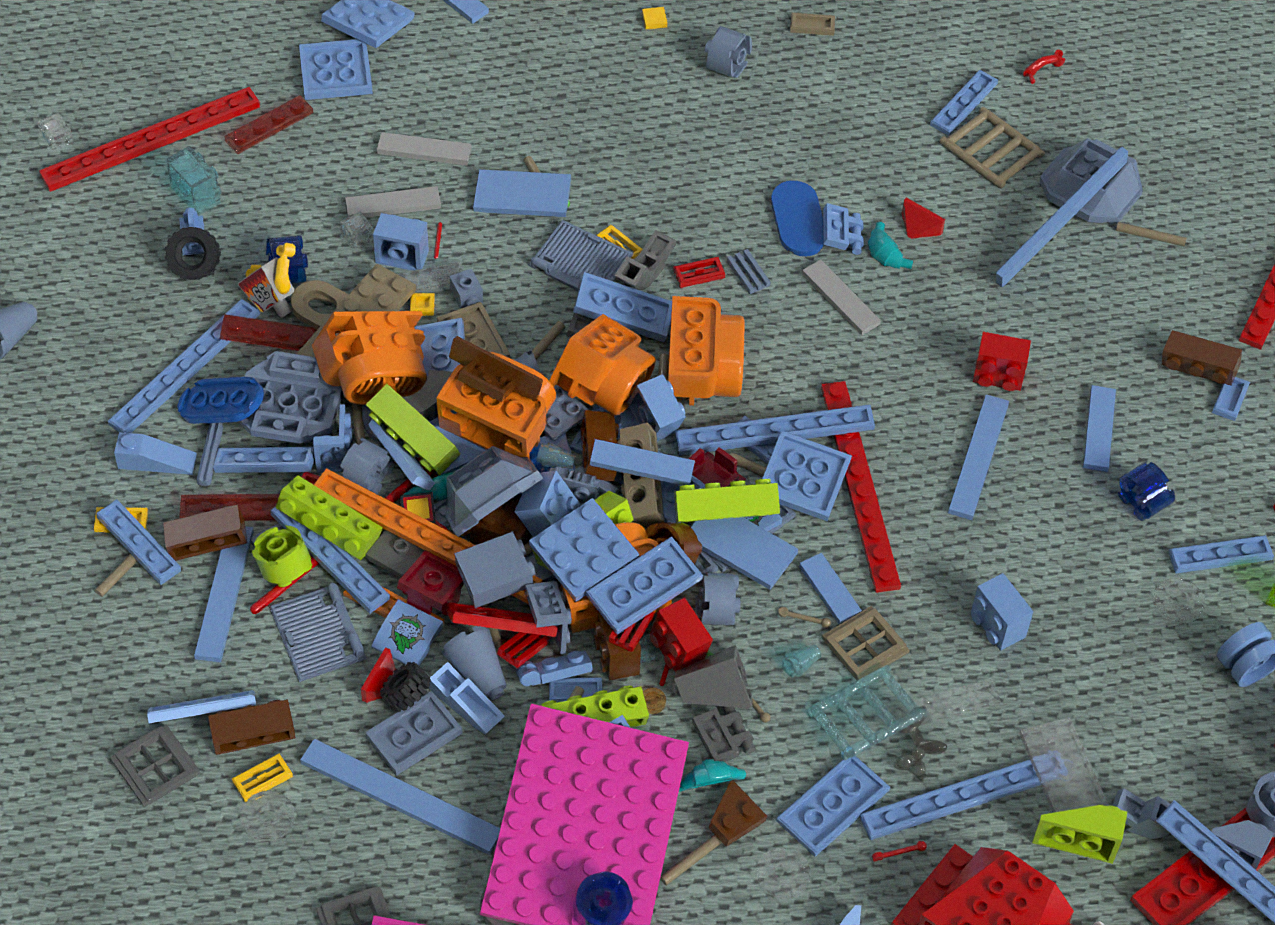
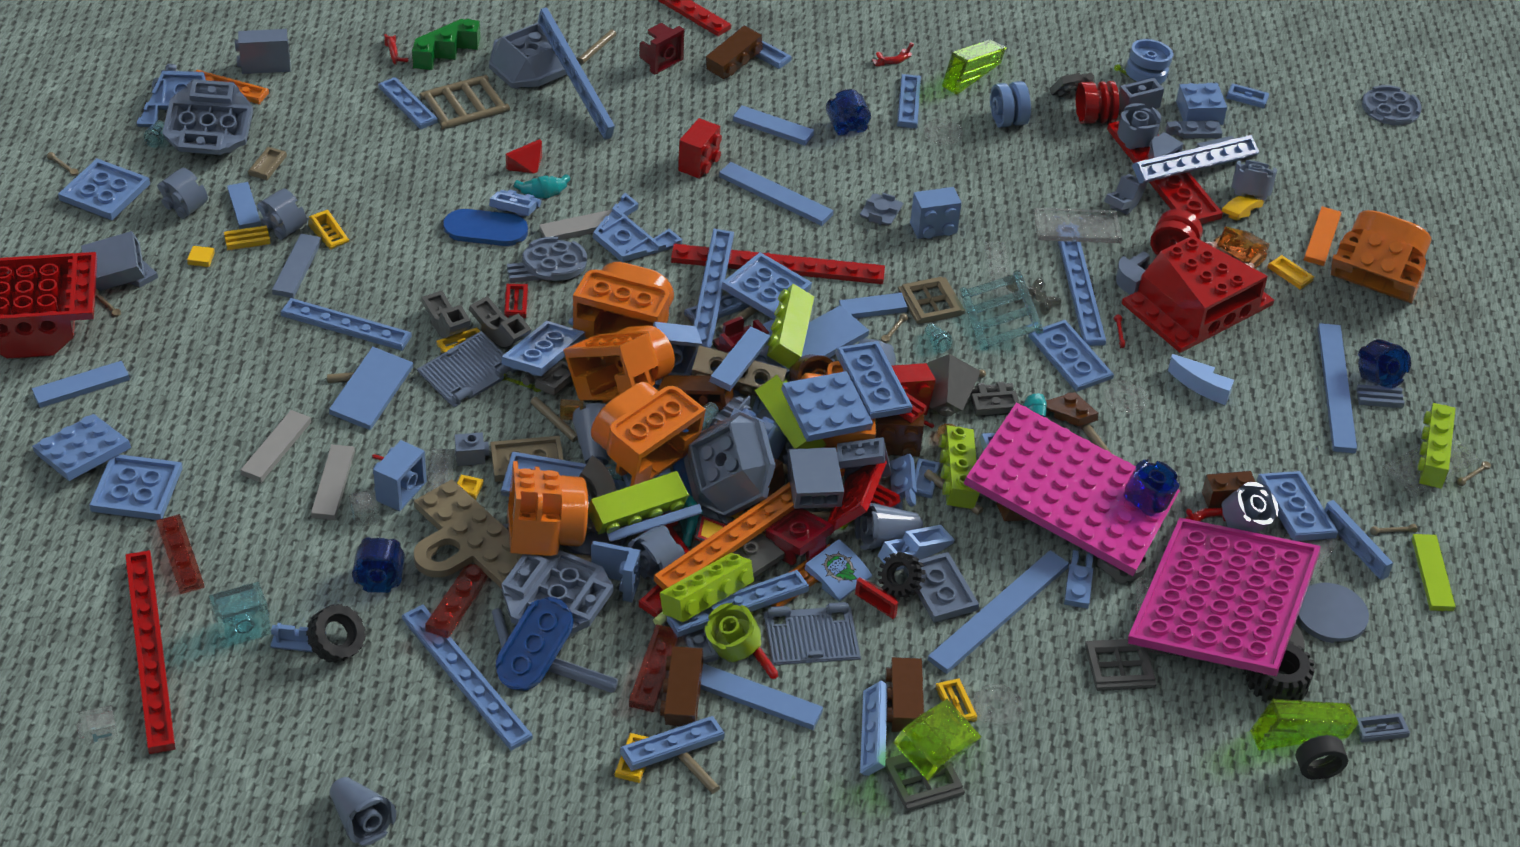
camera: 75 degrees left, 10 degrees down
(153, 455) = (569, 718): medium blue slope -> none
(189, 759) = (936, 739): none -> clear neon green slope
(264, 459) = (612, 629): medium blue tile -> none
(270, 284) = (407, 581): torso -> none
(462, 868) = (1079, 582): none -> medium blue hinge
(491, 373) = (637, 404): reddish brown bracket -> none
(551, 354) = (568, 407): none -> clear orange tile
(607, 151) = (346, 324): none -> medium blue tile
(641, 221) = (444, 317): none -> dark grey arch
(673, 90) = (297, 266): none -> sand blue tile
(688, 45) = (247, 237): none -> yellow tile
(738, 82) = (315, 222): none -> yellow slope
(747, 22) = (244, 205): none -> medium blue tile
(774, 286) = (554, 259): none -> sand blue tile
(833, 334) = (627, 239): none -> medium blue wing
(1000, 559) = (881, 209): none -> sand blue piece
(1004, 837) = (1130, 272): none -> sand blue brick
(1071, 101) = (444, 42): none -> green brick
(1084, 831) = (1137, 221): lime slope -> none
(1084, 880) = (1174, 227): none -> red wheel
(1163, 288) = (664, 49): none -> dark red panel

